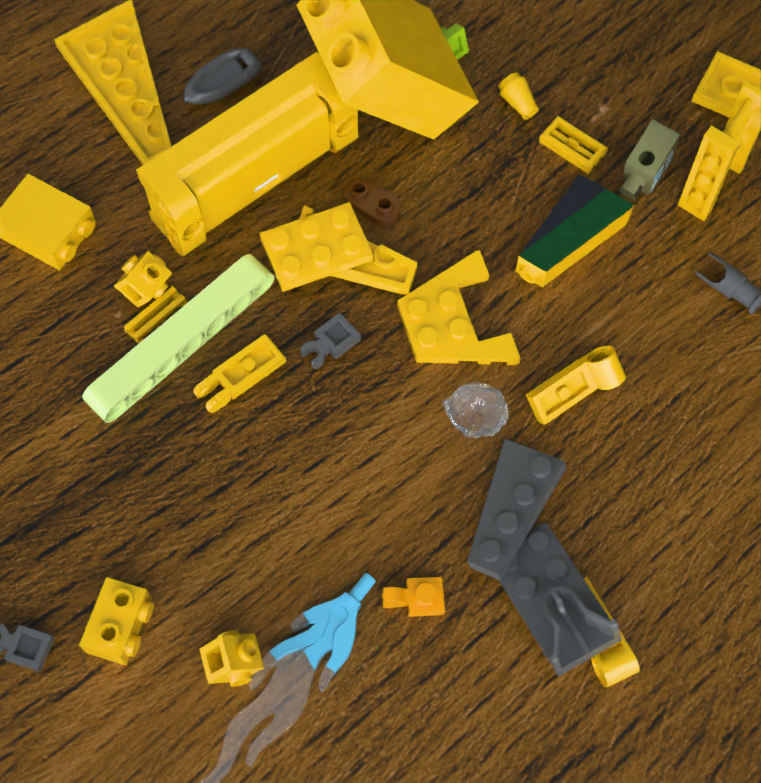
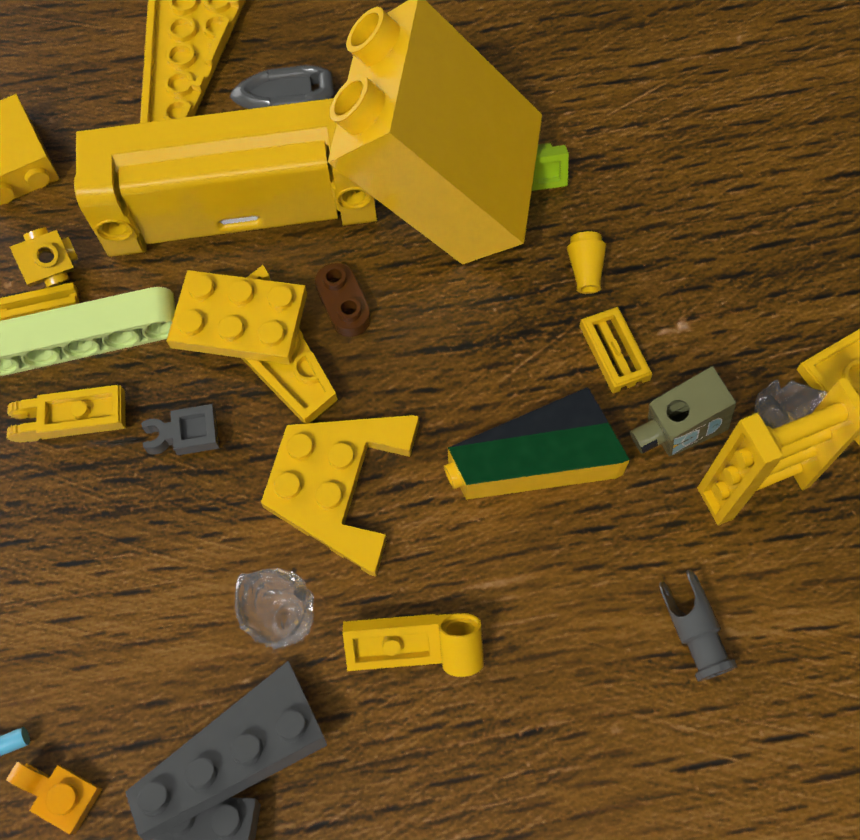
camera: 35 degrees right, 0 degrees up
(697, 125) = (783, 405): none -> clear hair

